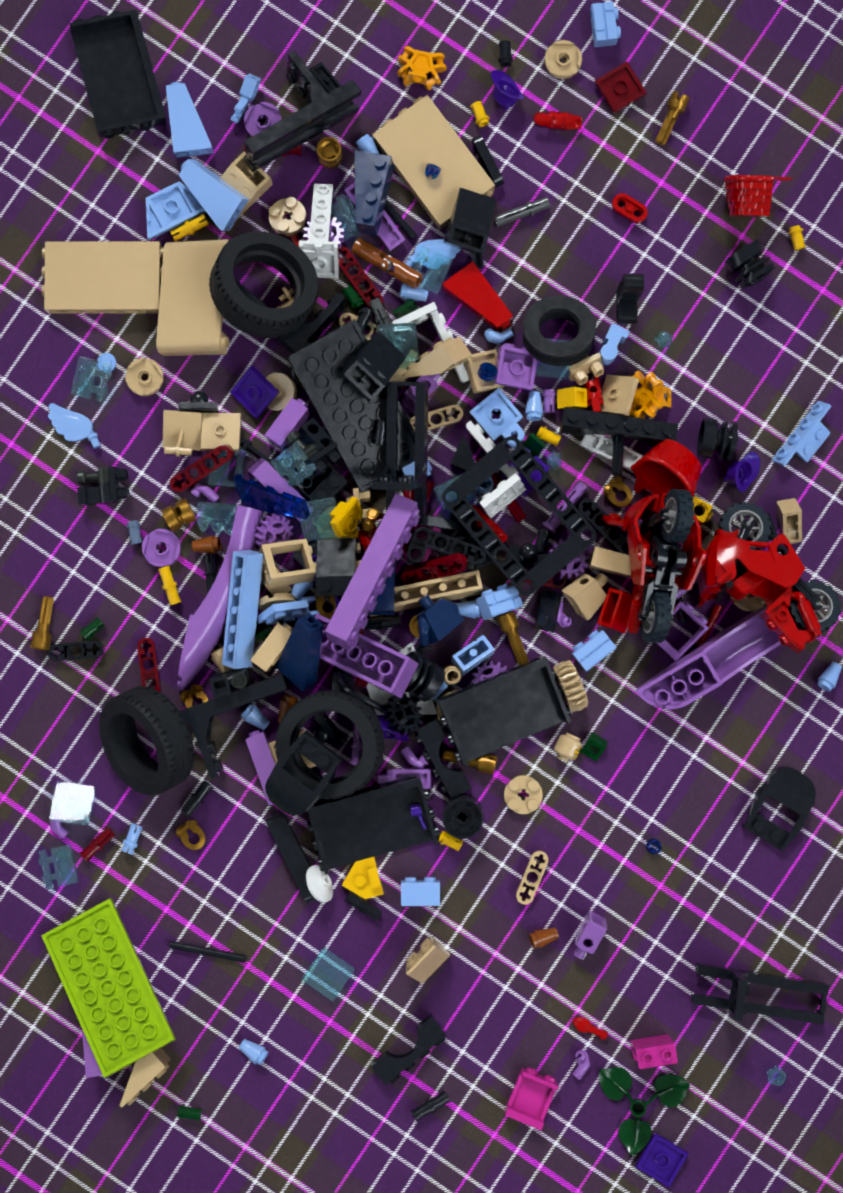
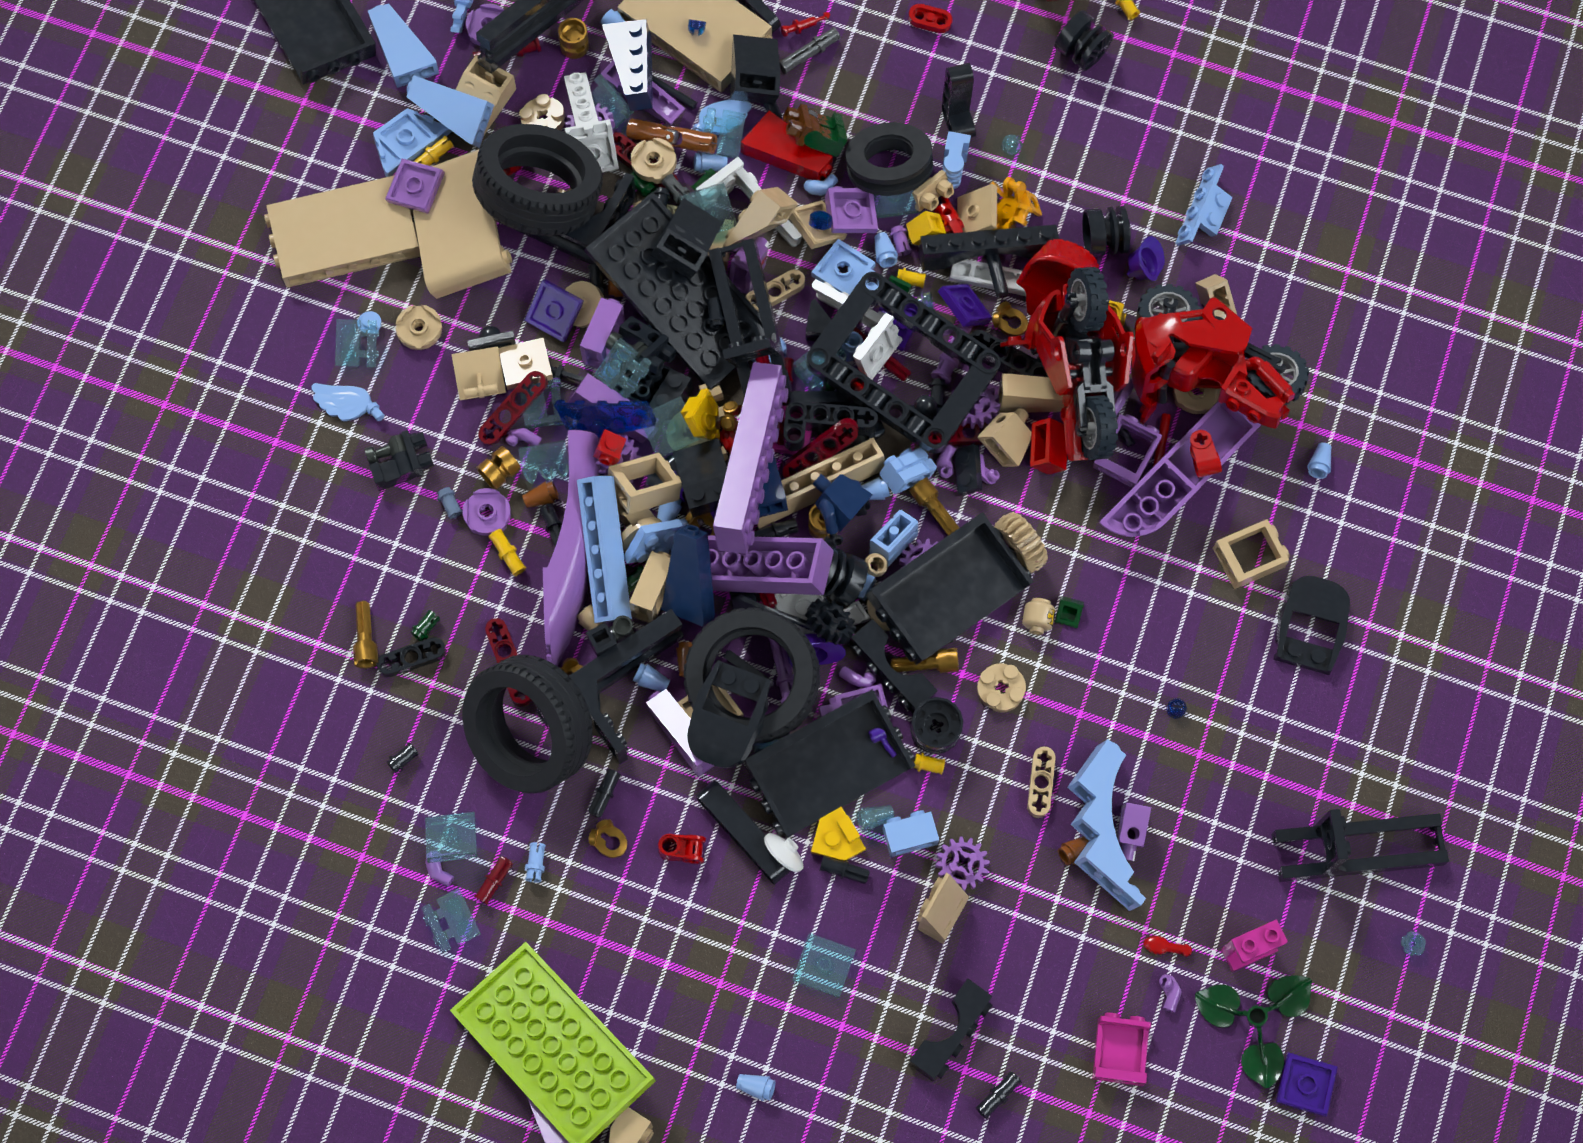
camera: 15 degrees left, 15 degrees down
(50, 730) = (402, 758): none -> black pin
(167, 257) = (415, 185): none -> medium lavender tile
(207, 951) = (665, 977): black bar -> none
(246, 858) = (684, 848): none -> red piece
(266, 529) = (609, 448): none -> red bracket
(367, 271) = (653, 171): none -> tan plate
(397, 871) = (873, 817): none -> clear light blue cone
(444, 926) = (971, 859): none -> medium lavender gear
(506, 290) = (816, 130): none -> hips
(517, 187) = (797, 25): none -> red piece
(530, 601) = (944, 461): none -> medium lavender arm
(560, 948) = (1102, 855): none -> light blue arch
(584, 473) = (965, 305): none -> dark purple plate
(593, 650) = (1036, 497): light blue brick -> none
(730, 740) = (1231, 565): none -> tan window
(736, 659) = (1204, 456): none -> red piece

